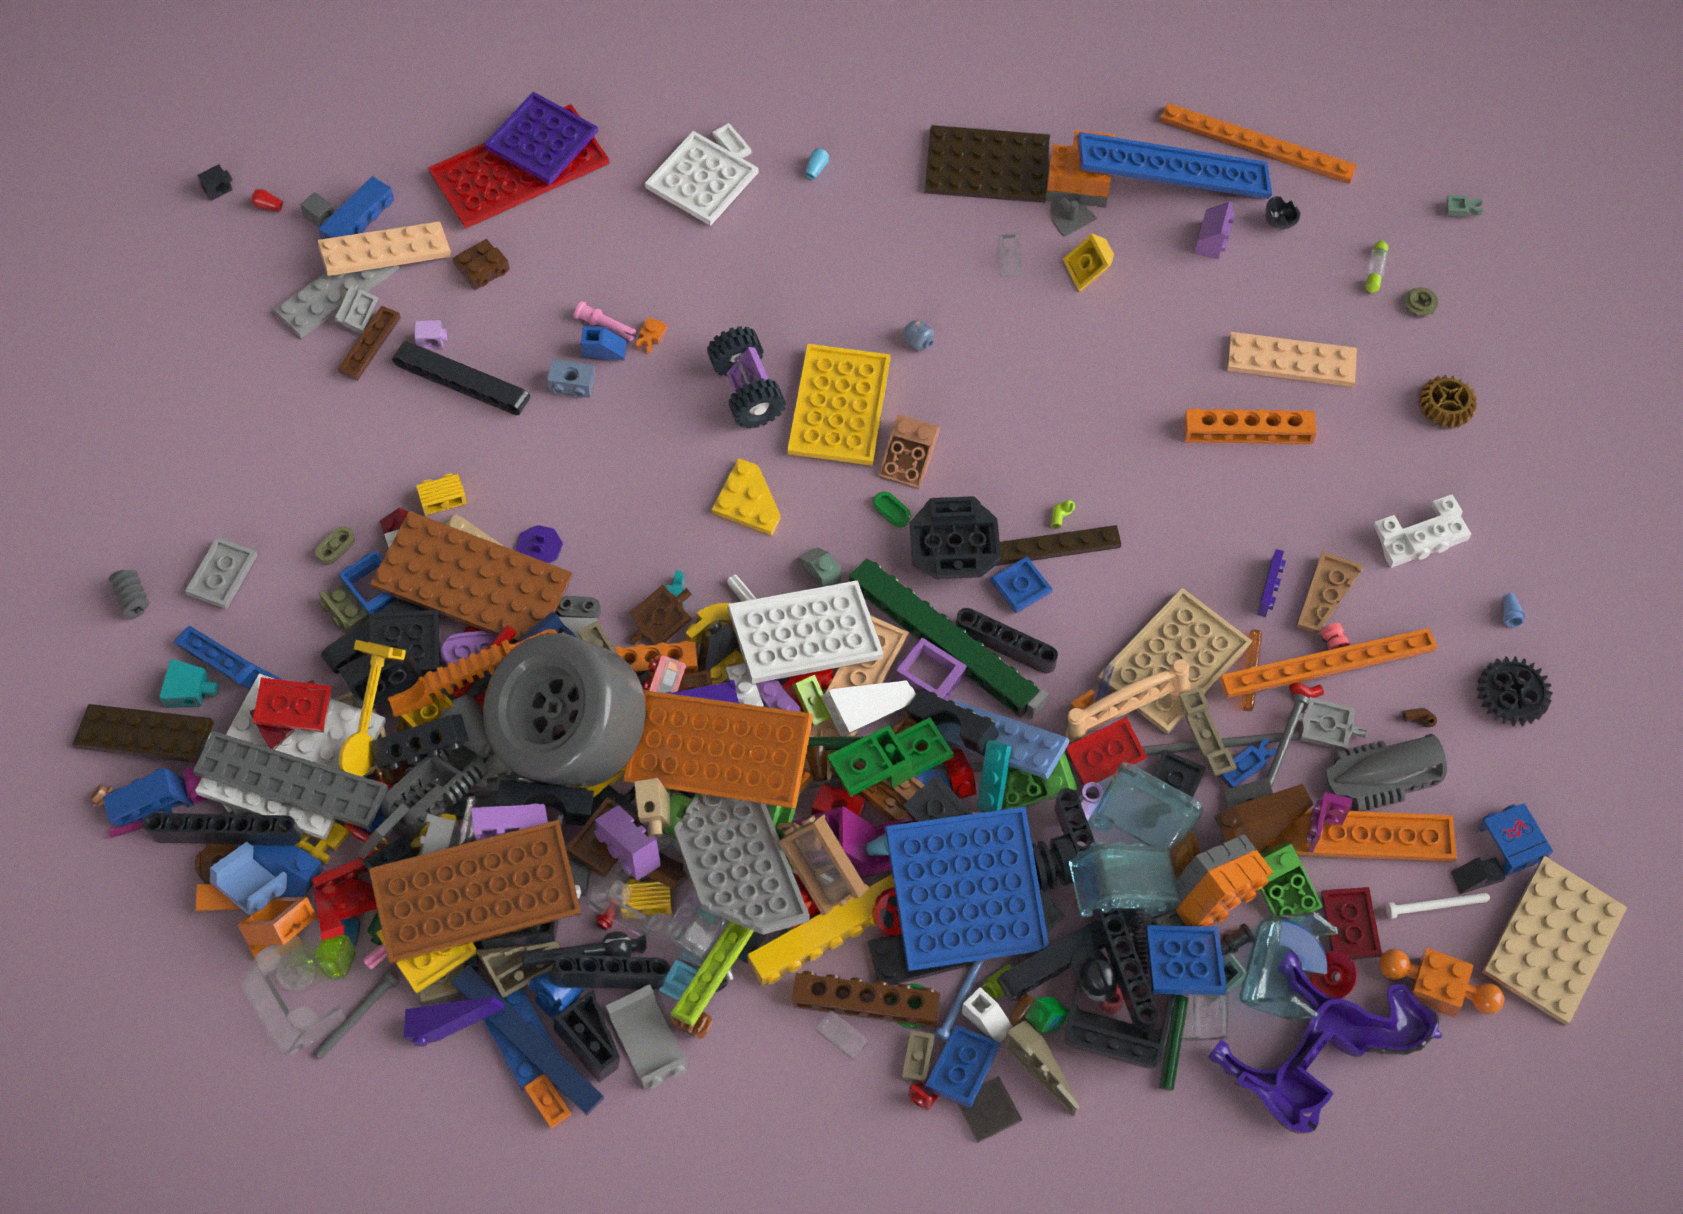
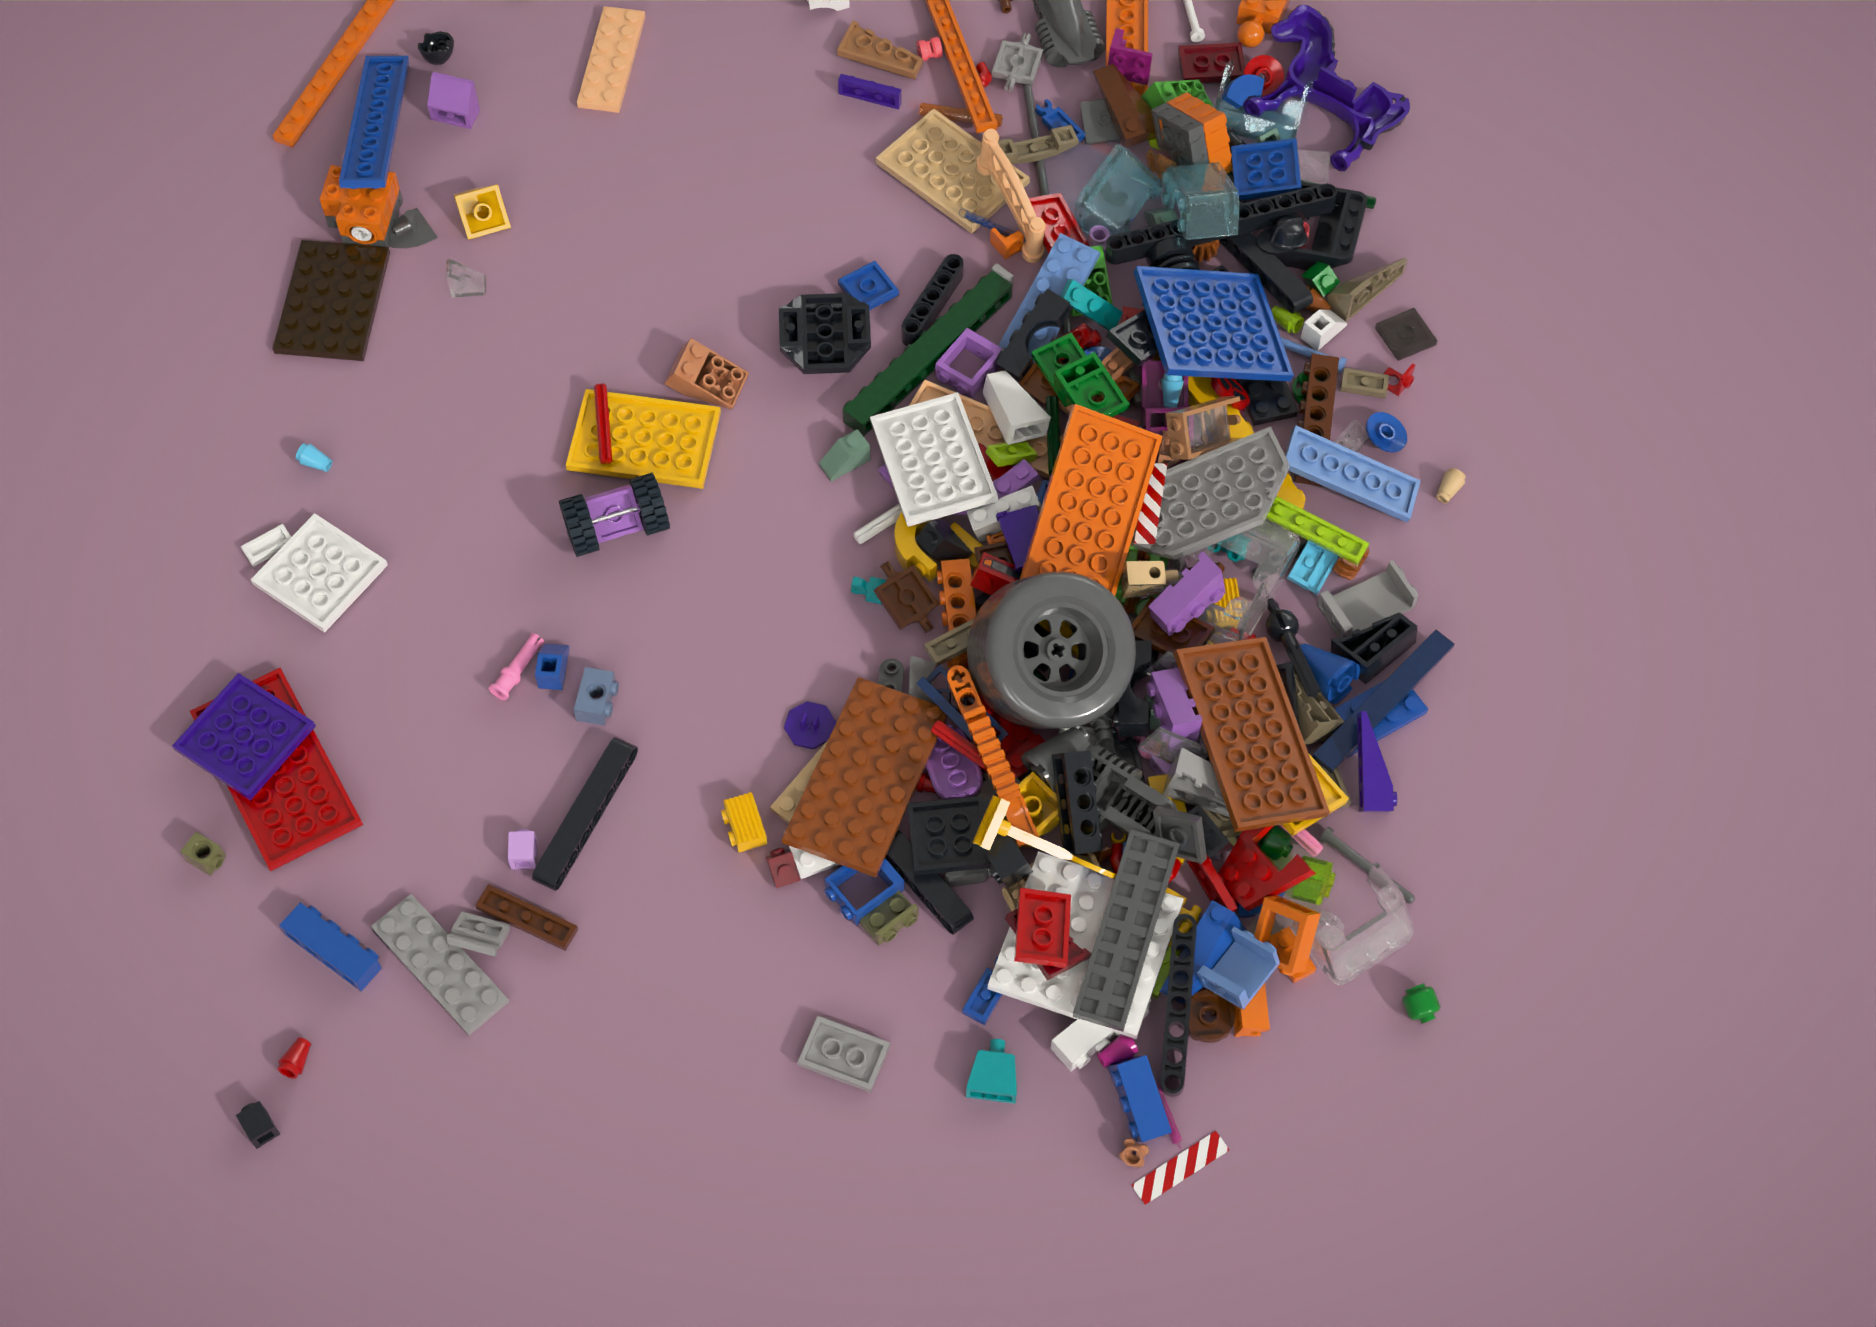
camera: 90 degrees left, 0 degrees up
(87, 837) = (1180, 1167): none -> sticker
(129, 593) = (872, 1151): dark grey piece -> none
(143, 733) = (1059, 1111): dark brown plate -> none
(207, 1050) = (1421, 1003): none -> green head
(214, 655) = (956, 1045): blue plate -> none
(317, 209) = (319, 992): dark grey panel -> none
(333, 545) = (810, 933): olive plate -> none
(383, 248) = (391, 907): light nougat plate -> none
(444, 126) = (197, 847): none -> olive brick
(481, 264) = (419, 802): reddish brown plate -> none
(547, 1101) = (1439, 684): orange plate -> none
(608, 972) = (1315, 623): black beam -> none
(651, 332) = (534, 620): orange plate -> none
(737, 812) = (1150, 511): none -> sticker
(747, 499) = (757, 525): yellow plate -> none
(788, 1135) = (1451, 483): none -> tan cone
(790, 1024) = (1351, 474): none -> medium blue plate
(848, 367) = (603, 423): none -> red axle
(863, 1079) = (1386, 432): none -> blue dish
(891, 509) = (774, 396): green tile -> none
(918, 335) = (561, 363): sand blue head -> none
(963, 1066) = (1372, 346): blue plate -> none
(1060, 511) = (782, 252): lime arm -> none
(1060, 544) = (820, 249): dark brown plate -> none
(1179, 772) = (1072, 175): black plate -> none
(1238, 431) = (692, 95): orange brick -> none
(1300, 701) = (1001, 74): dark grey bar -> none

